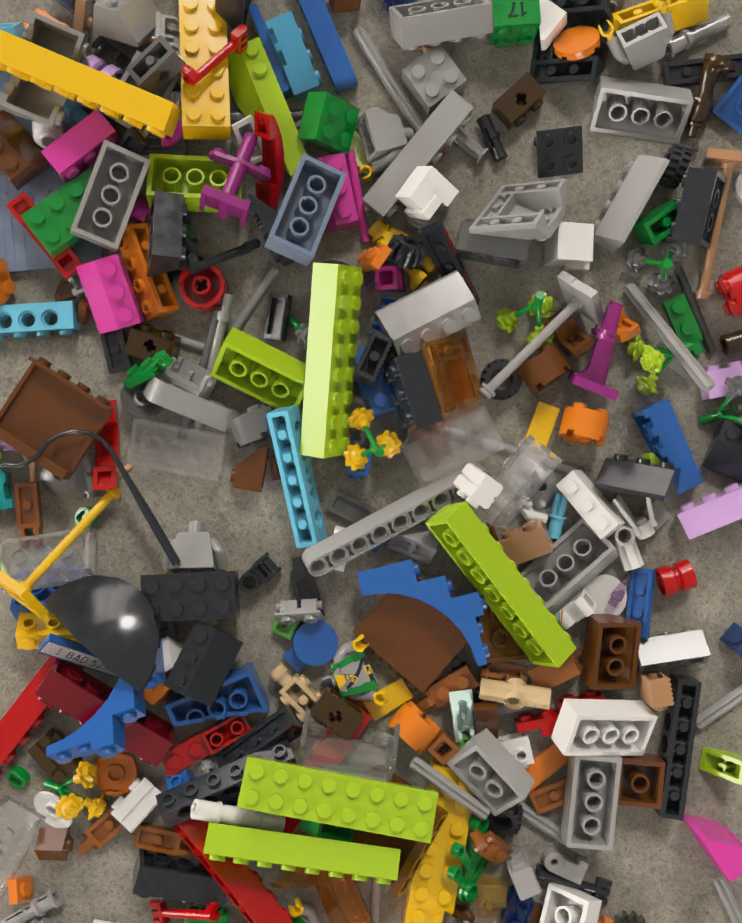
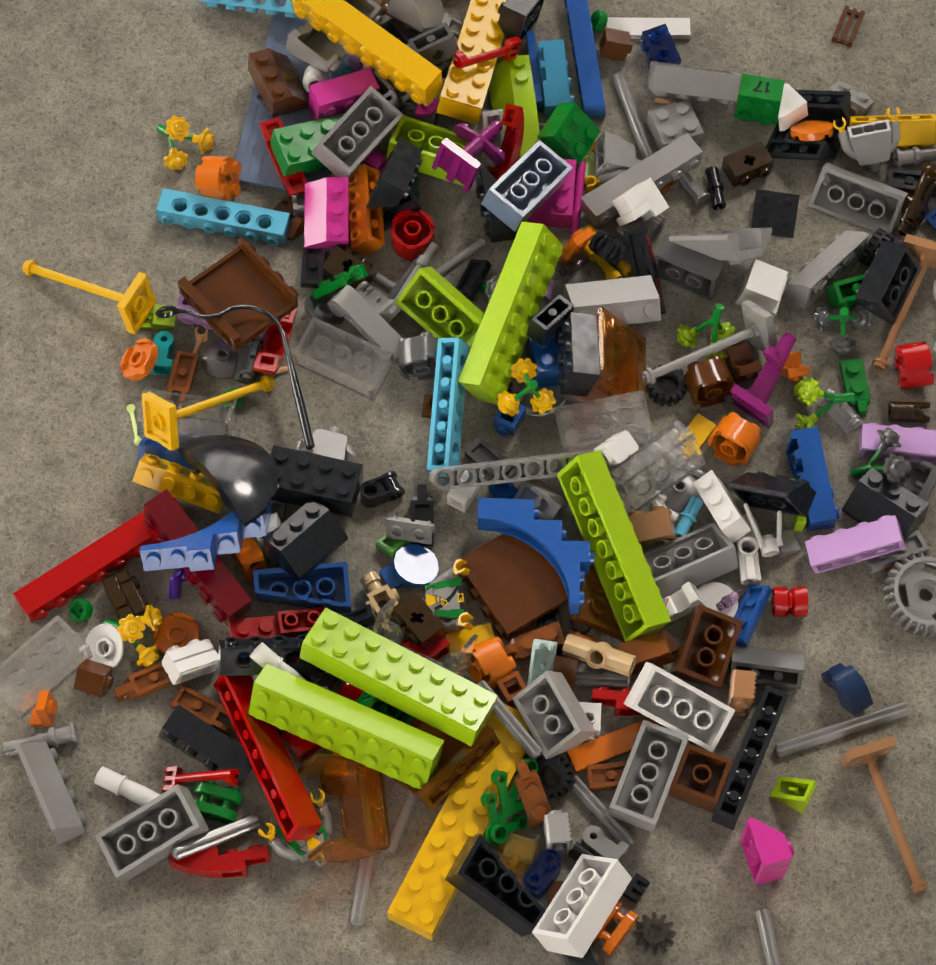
camera: 15 degrees right, 25 degrees down
(73, 653) = (188, 499): tile -> none
(194, 265) = (459, 216): black hinge -> none
(251, 472) = (404, 399): reddish brown slope -> none
(390, 279) = (586, 271): dark pink brick -> none
(669, 338) = (834, 382): light grey axle -> none
(686, 289) = (865, 355): pearl dark grey bar -> none

